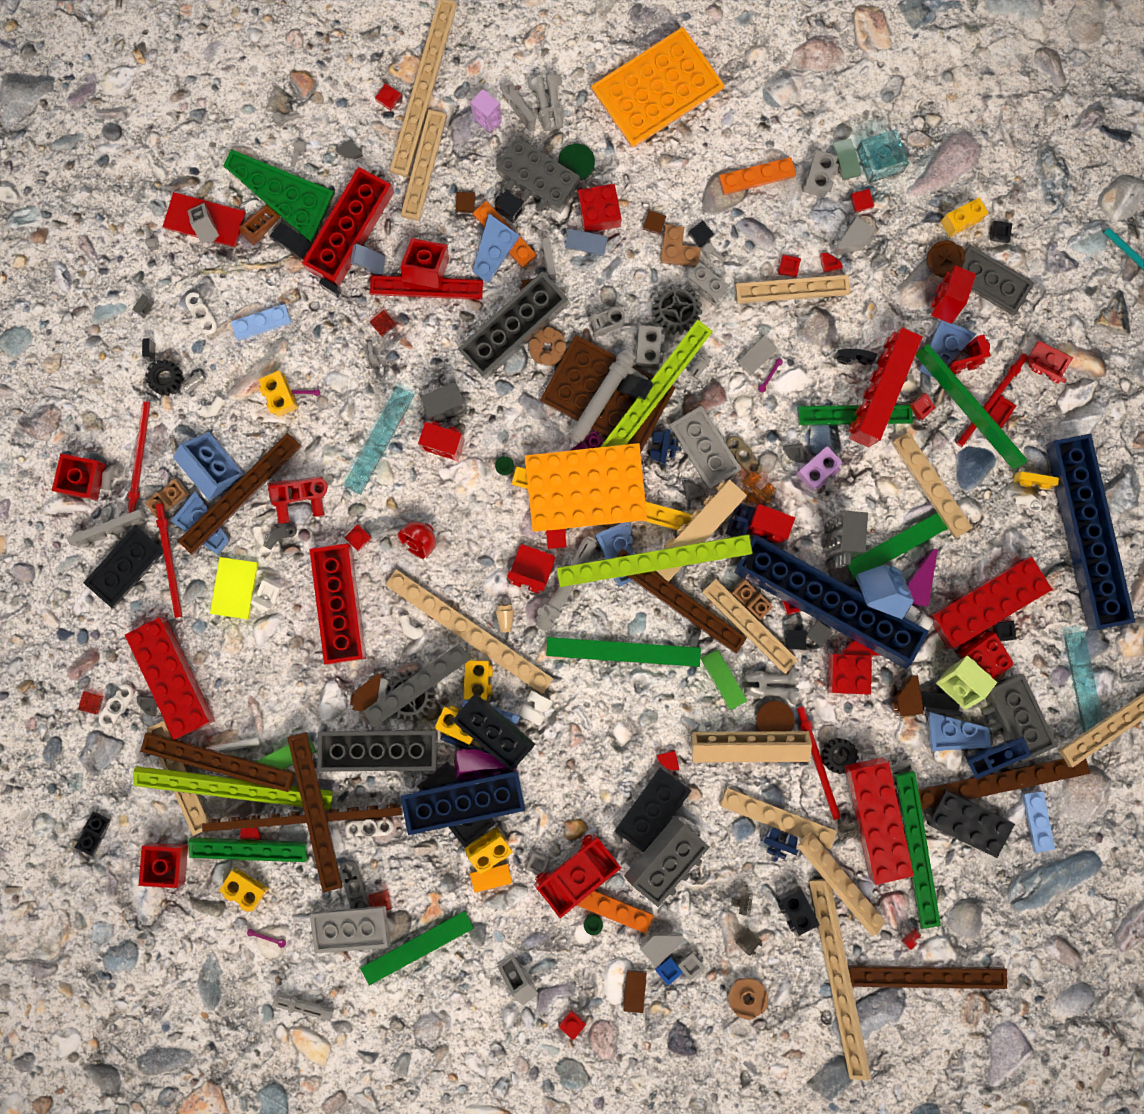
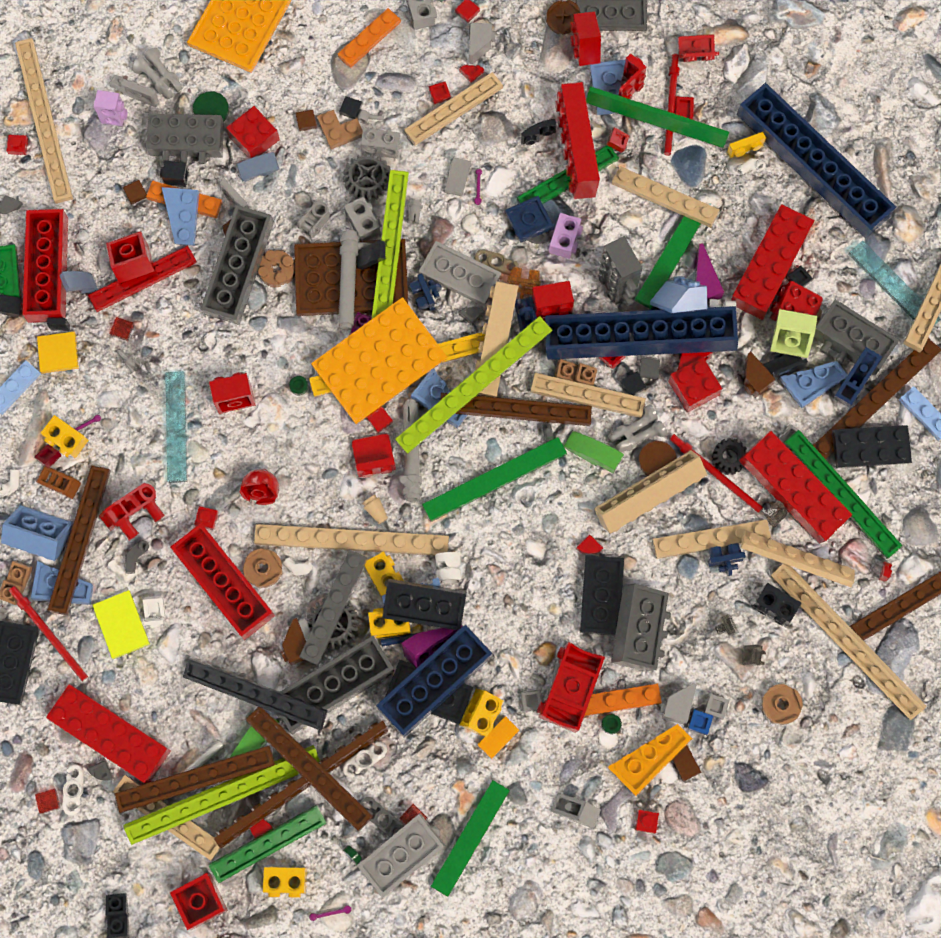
camera: 30 degrees left, 10 degrees down
(254, 403) = (47, 456): none -> dark red plate
(257, 441) = (69, 487): none -> dark orange slope
(307, 721) = (255, 694): none -> black tile
(311, 902) = (352, 854): none -> dark green tile
(316, 312) = (57, 352): none -> yellow tile
(371, 603) = (264, 557): none -> medium nougat plate
(423, 165) = (81, 182): tan plate -> none
(444, 403) = (215, 359): dark grey brick -> none
(605, 976) = (646, 762): none -> light orange wing
(796, 434) = (529, 219): none -> dark blue tile

